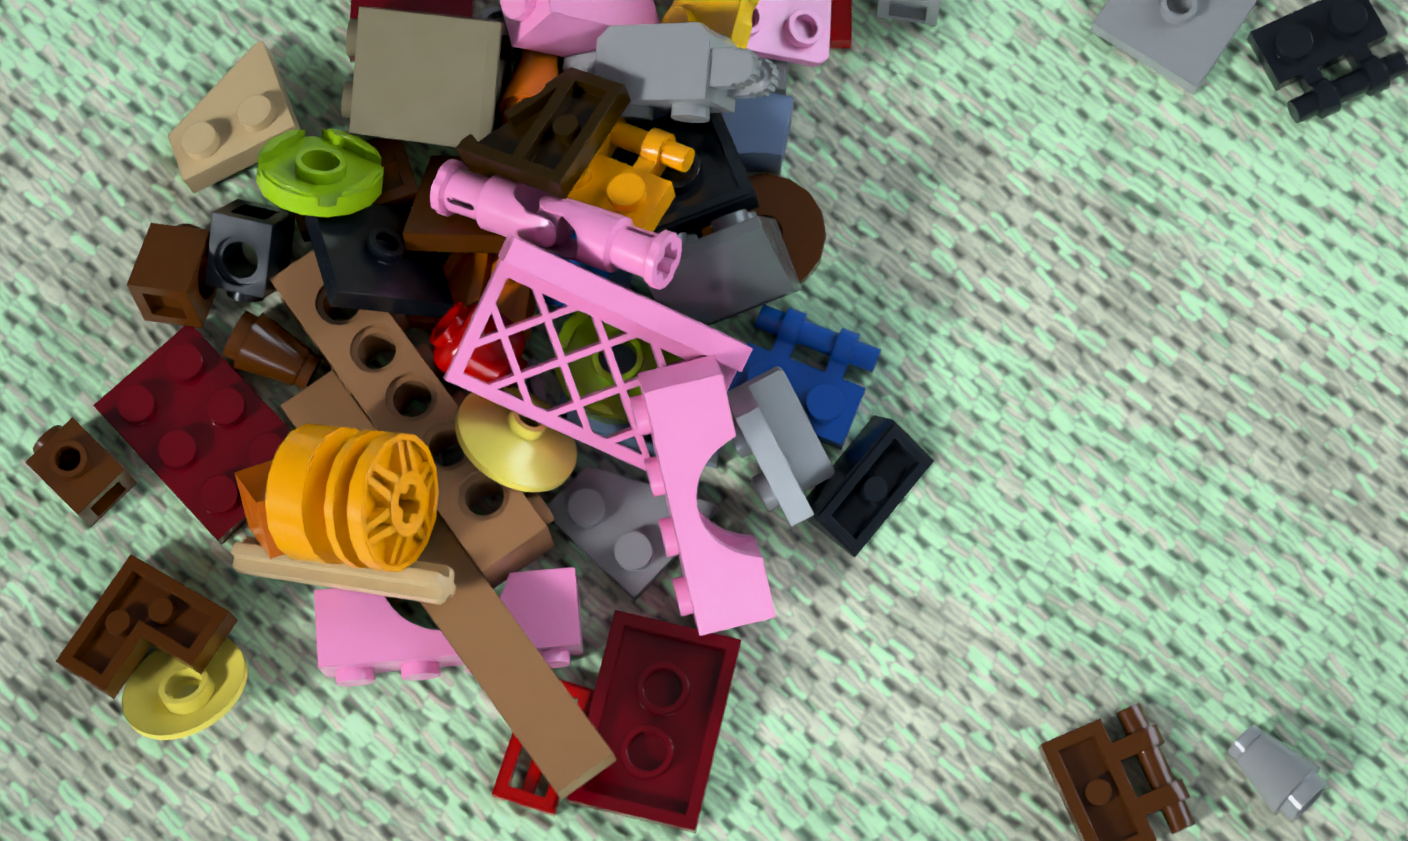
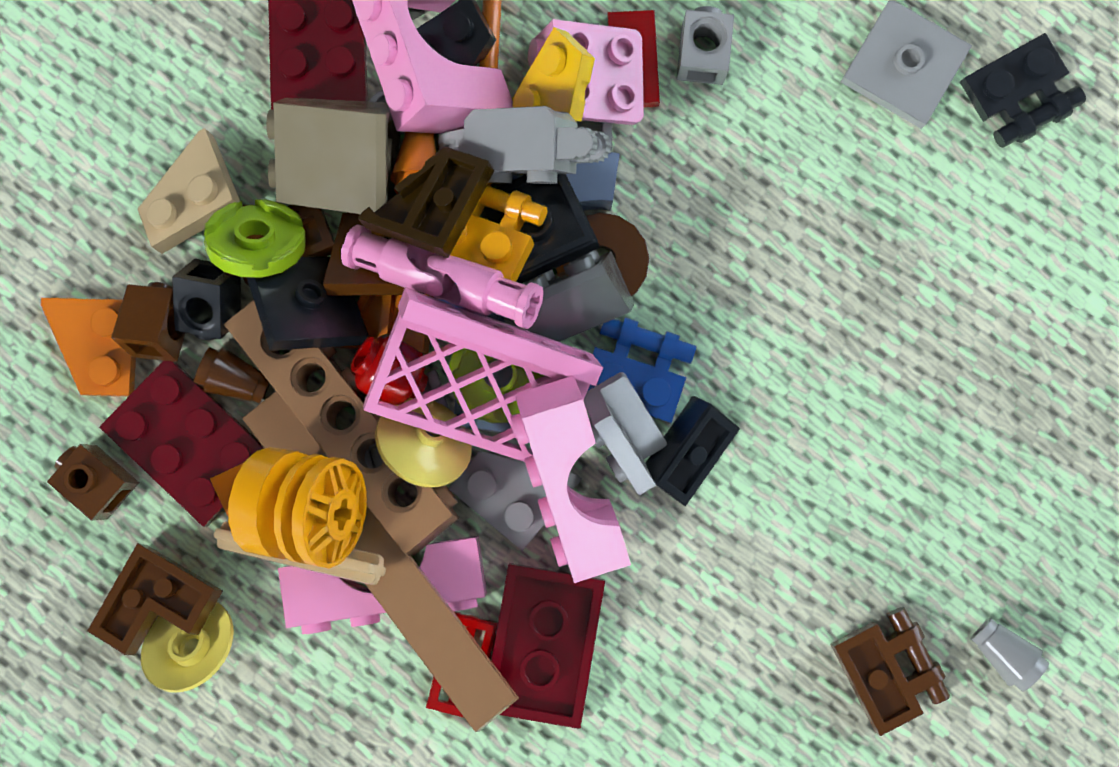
camera: 10 degrees left, 10 degrees up
(94, 302) = (84, 337): none -> orange wing

